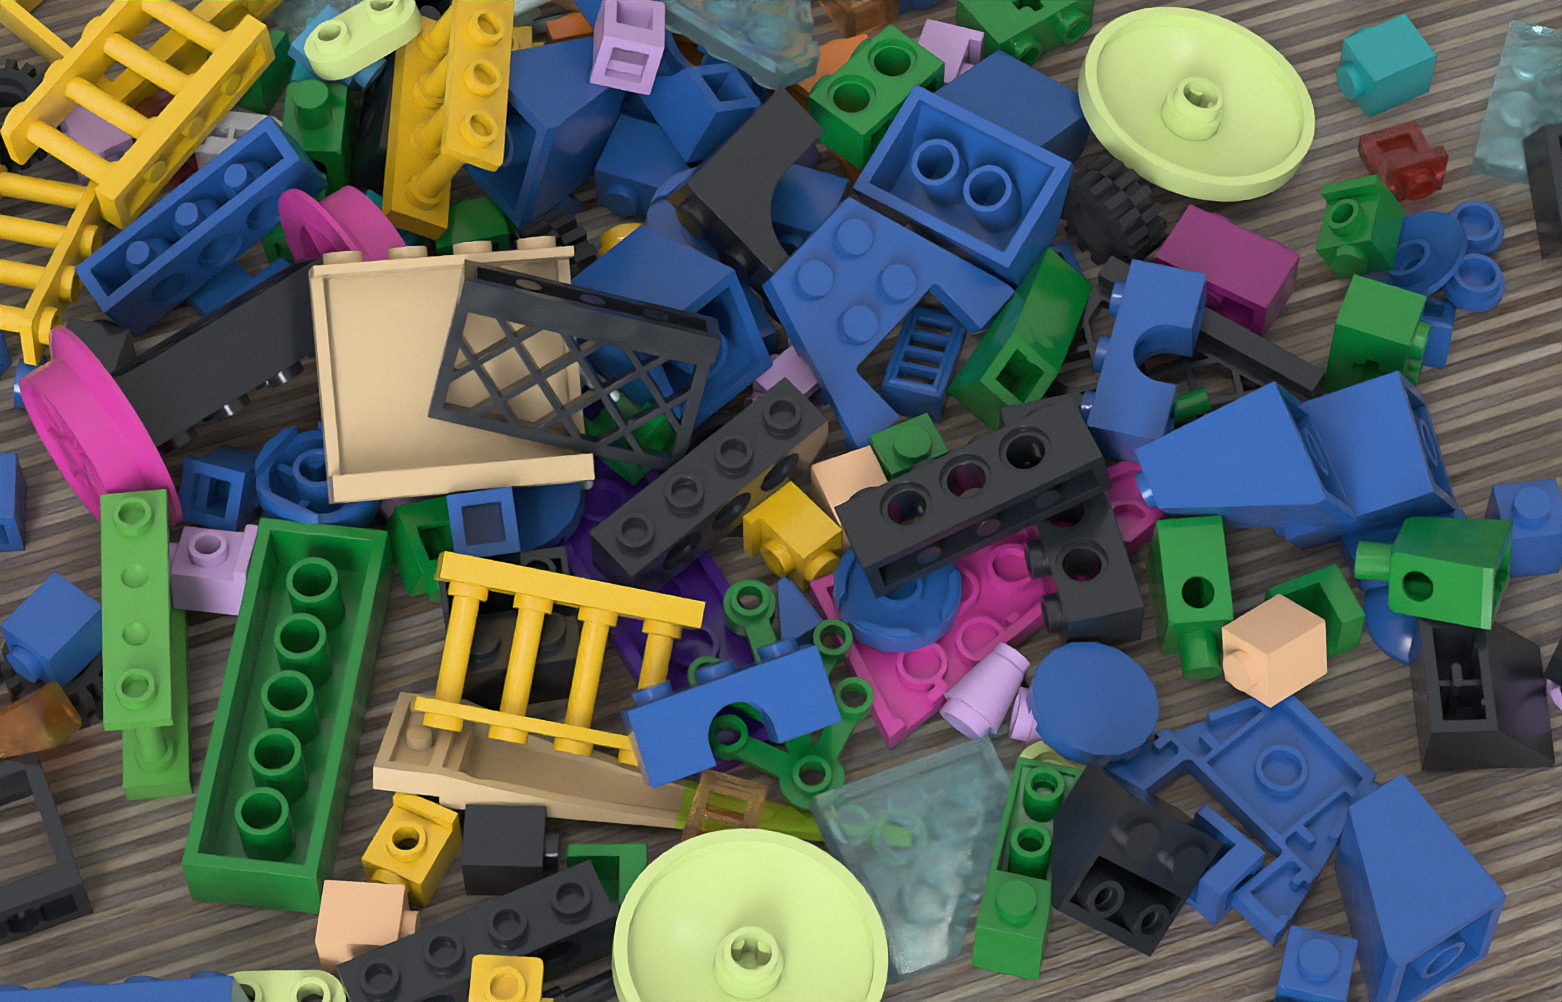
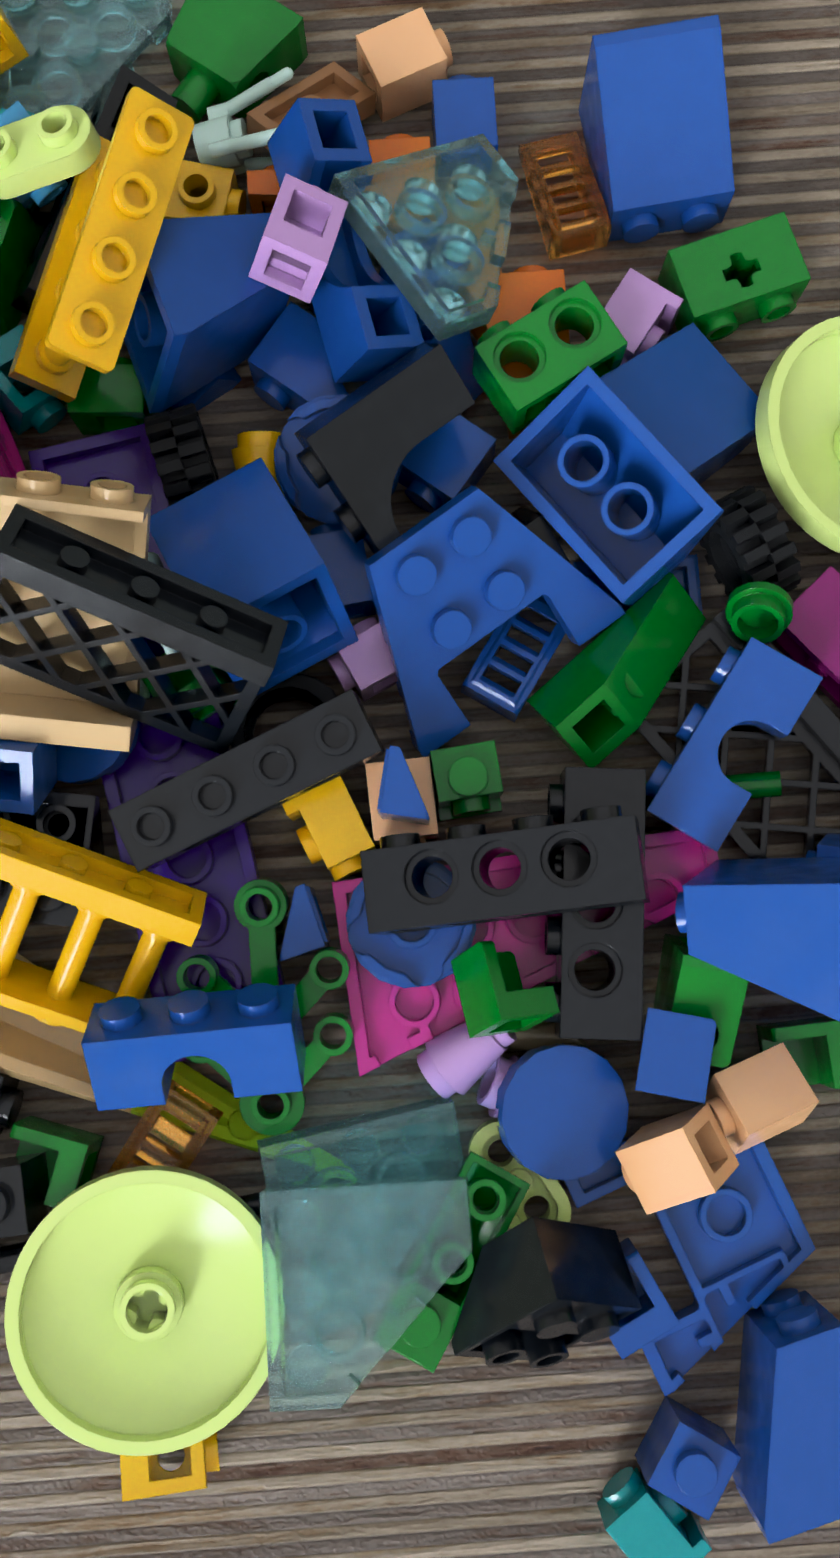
camera: 15 degrees right, 25 degrees up
(854, 461) = (398, 792): none -> blue slope
(939, 864) = (351, 1276): none -> clear light blue plate
(1000, 614) = (494, 993): none -> green panel
(1133, 239) = (759, 611): none -> green plate
(1180, 619) = (676, 1055): none -> blue panel
(1209, 704) = (677, 1159): none -> light nougat brick

